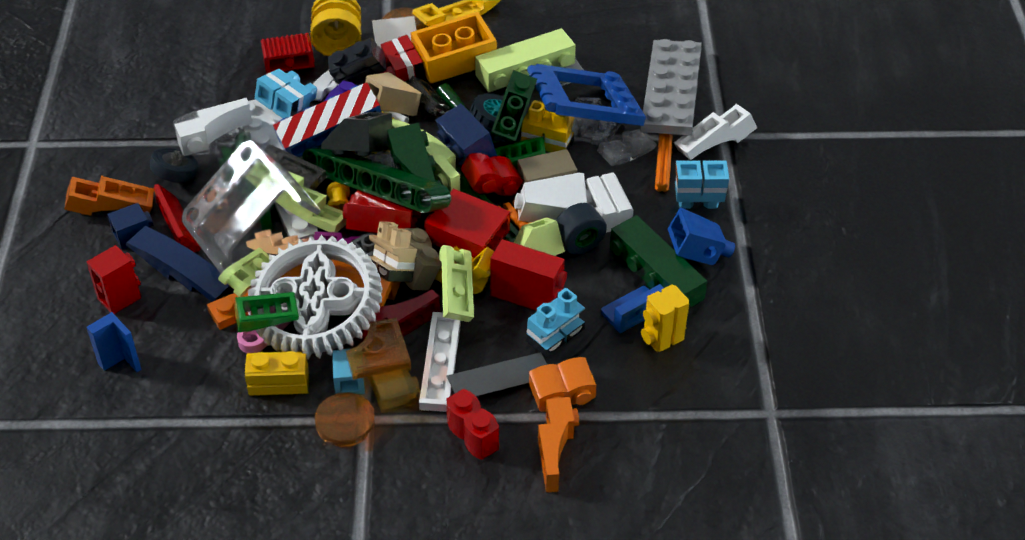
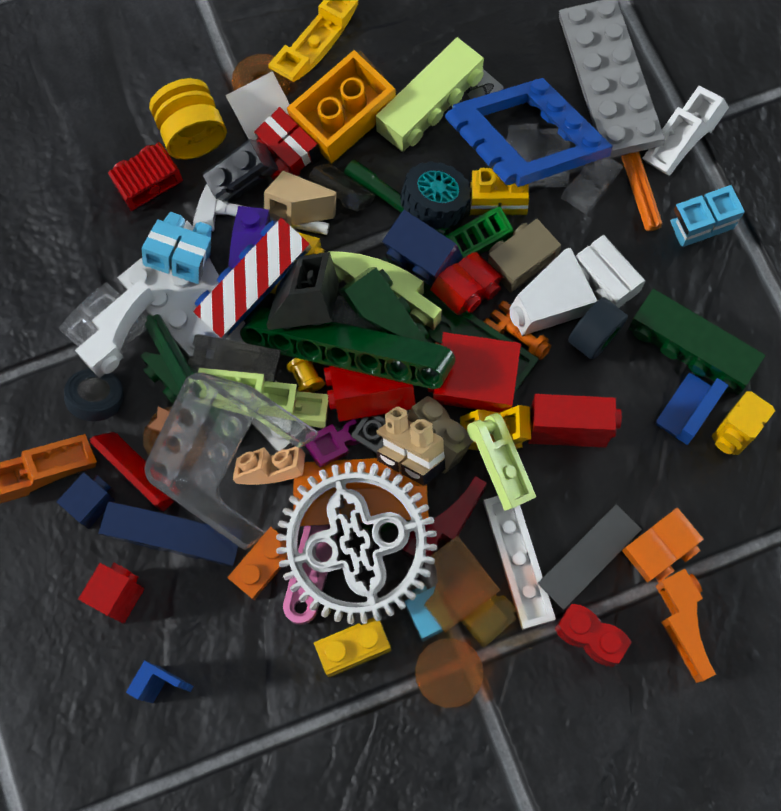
camera: 15 degrees left, 25 degrees up
(243, 271) = (260, 525): yellowish green plate -> none
(263, 302) = (293, 610): green slope -> none
(513, 106) = (458, 185): dark green slope -> none
(541, 236) = (556, 364): yellowish green slope -> none
(555, 323) = (623, 468): medium azure hips -> none
(698, 238) = (729, 296): blue torso -> none

